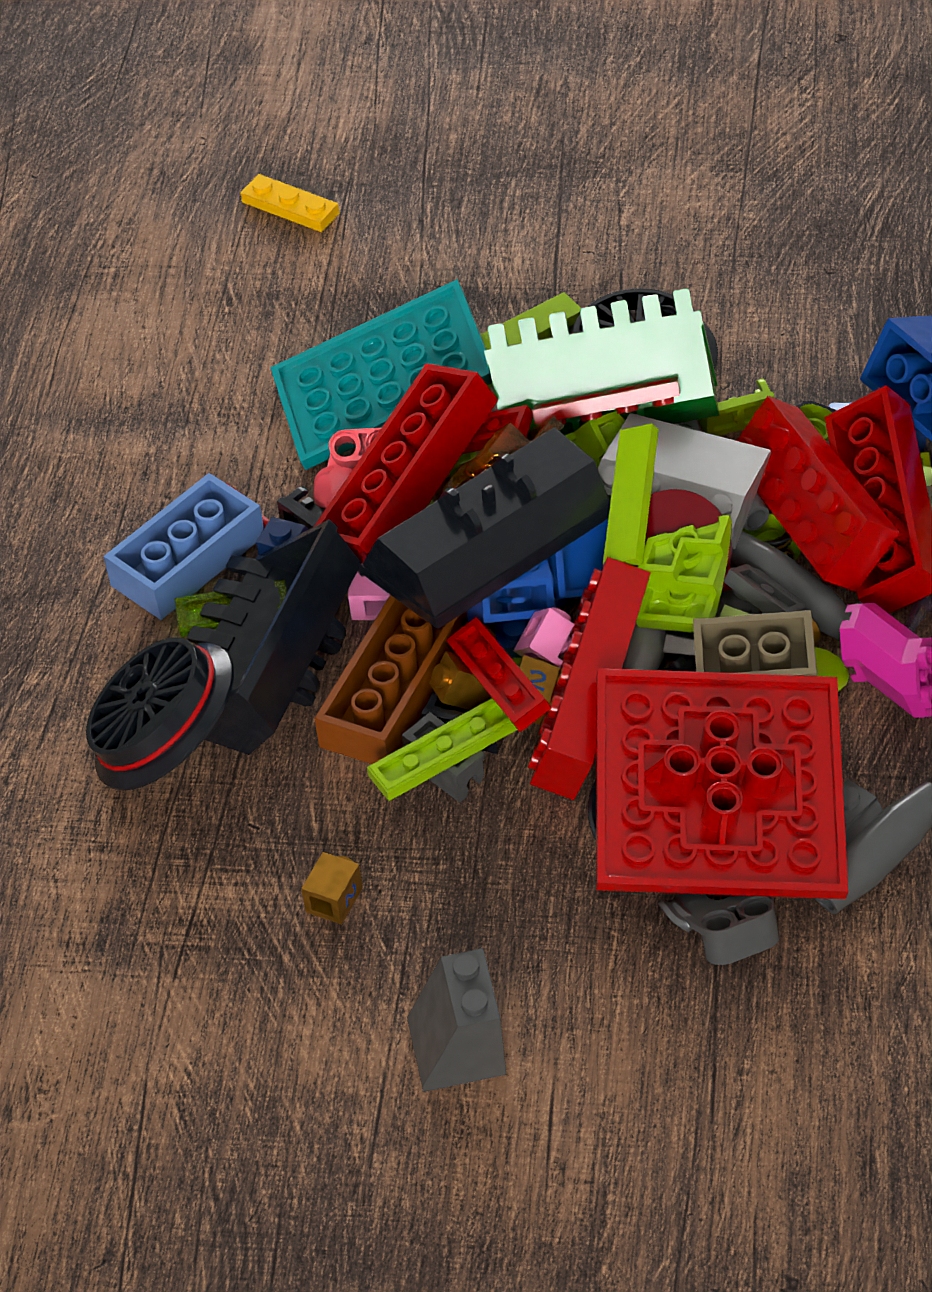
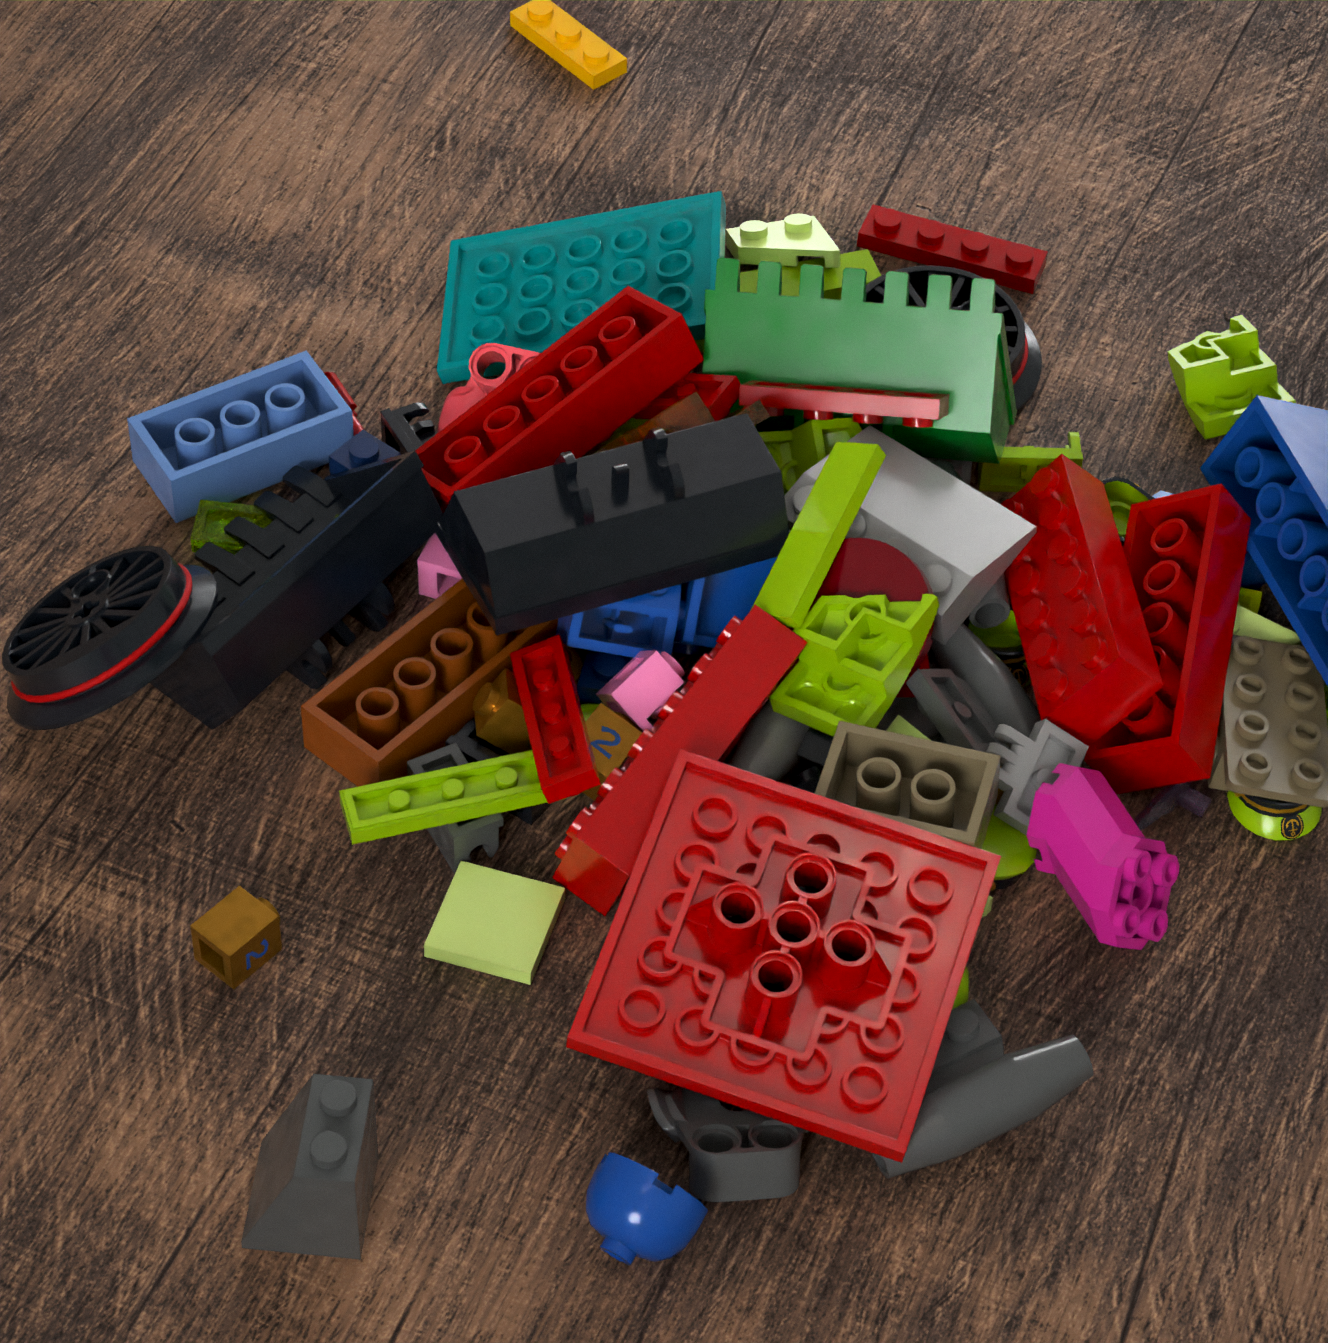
camera: 10 degrees right, 0 degrees up
(502, 825) = (494, 922): none -> yellowish green tile
(505, 302) = (782, 241): none -> yellowish green wing
(620, 274) = (950, 246): none -> red plate
(685, 983) = (640, 1212): none -> blue cylinder
(827, 614) = (1029, 765): none -> light grey hinge
(845, 314) = (1223, 375): none -> lime slope

